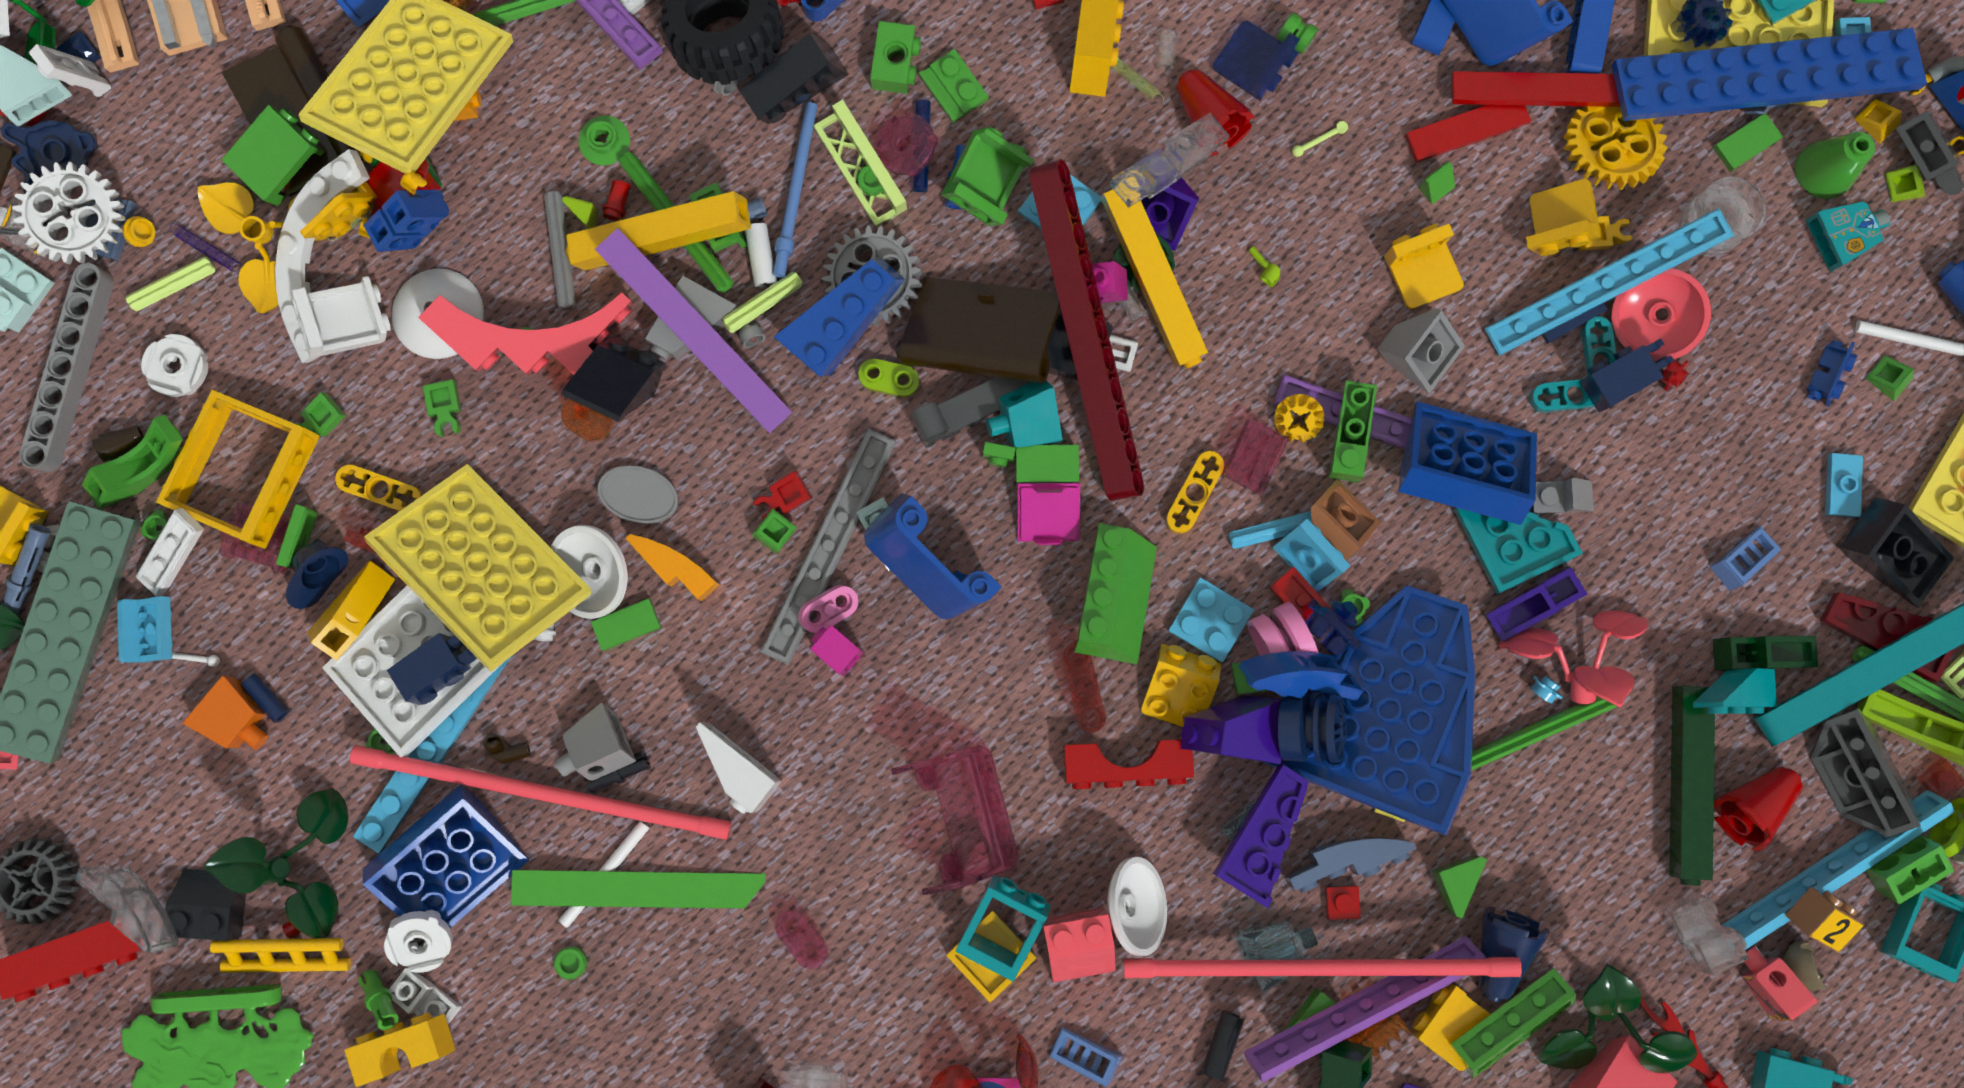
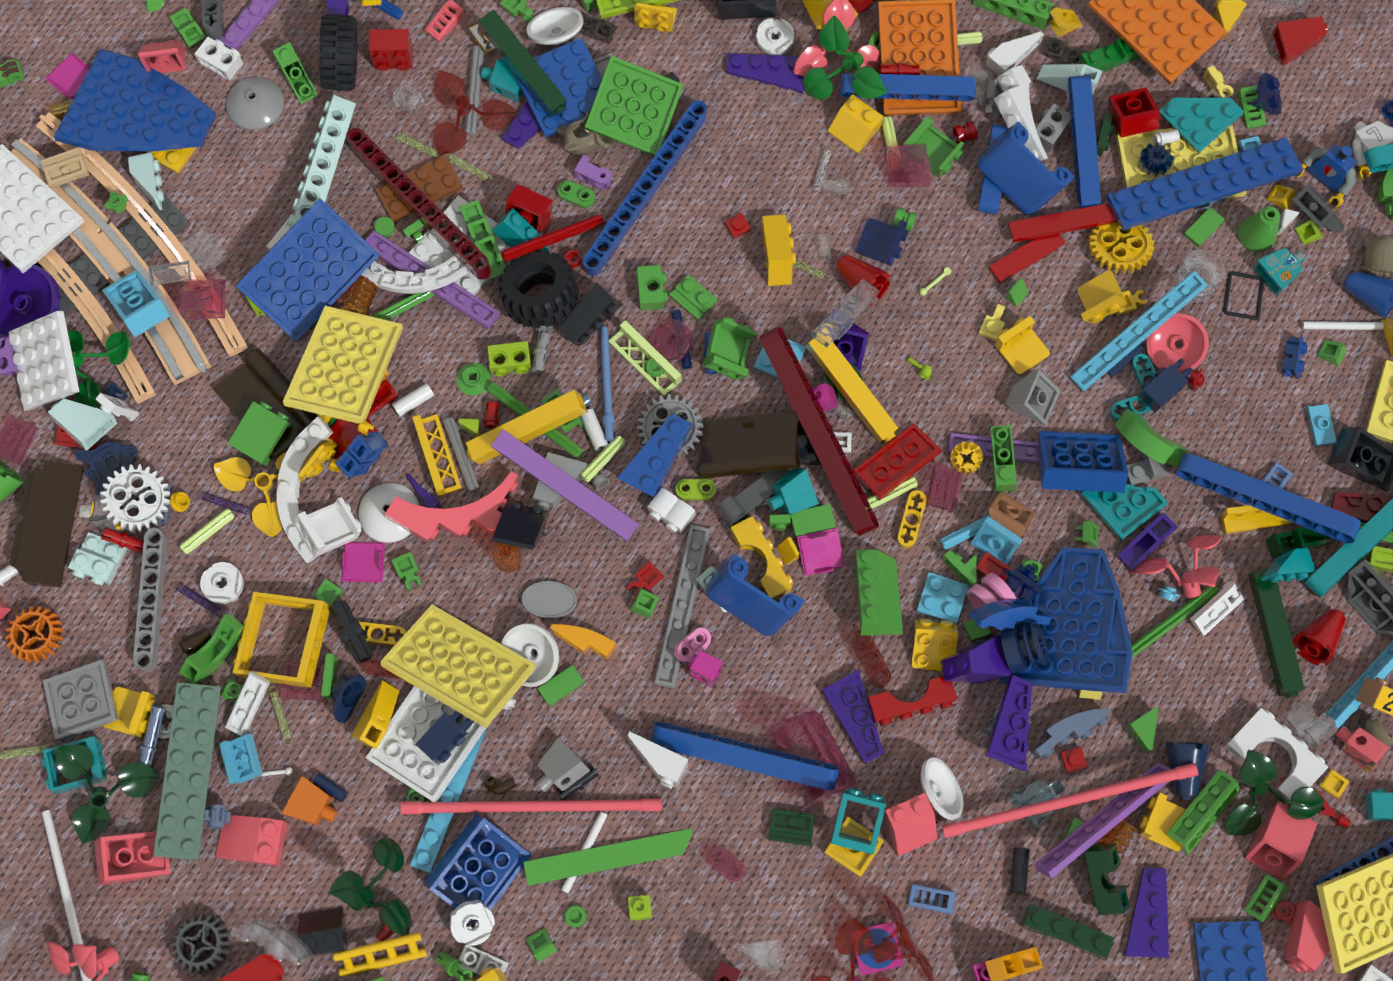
camera: 15 degrees left, 10 degrees down
(41, 269) = (122, 540): none -> red pin
(92, 706) = (217, 817): none -> sand blue gear
(139, 750) = (252, 840): none -> coral slope
(143, 379) = (180, 591): none -> dark purple piece
(213, 571) = (283, 721): none -> yellowish green piece
(339, 480) = (351, 632): none -> black piece
(384, 378) = (363, 562): none -> dark pink piece
(458, 139) = (383, 397): none -> red plate
(497, 310) = (428, 500): none -> dark purple piece
(507, 152) = (413, 399): none -> white piece
(512, 237) = (428, 452): none -> yellow fence
(513, 991) = (541, 944): none -> bright green slope
(662, 975) = (640, 907): none -> lime brick
(663, 112) = (509, 353): none -> lime brick
(709, 122) = (540, 353): none -> light grey pin
(844, 402) = (671, 511): none -> white brick
(864, 790) = (745, 756): none -> blue beam
(906, 908) = (791, 827): none -> dark green plate
(949, 465) = (749, 536): none -> yellow arch
(1001, 500) = (788, 551): none -> yellow slope
(1038, 755) = (852, 709): none -> dark purple wing
(1176, 445) = (906, 486): none -> yellowish green axle
(1193, 401) = (896, 461): none -> red tile
(1255, 591) = (965, 572): none -> bright green slope
(1388, 224) = (992, 325): none -> light yellow plate
(1453, 572) = (1090, 533): none -> bright green tile
(1576, 453) = (1147, 440): none -> bright green arch
(1614, 727) = (1217, 608): none -> white plate
(1681, 993) = (1264, 728): none -> white arch
(1717, 1024) = (1334, 784): none -> yellow tile
(1721, 604) = (1249, 518): none -> yellow fence
(1737, 584) = (1268, 498): none -> blue beam
(1803, 269) = (1228, 291): none -> black piece
(1882, 153) = (1286, 219): none -> white slope

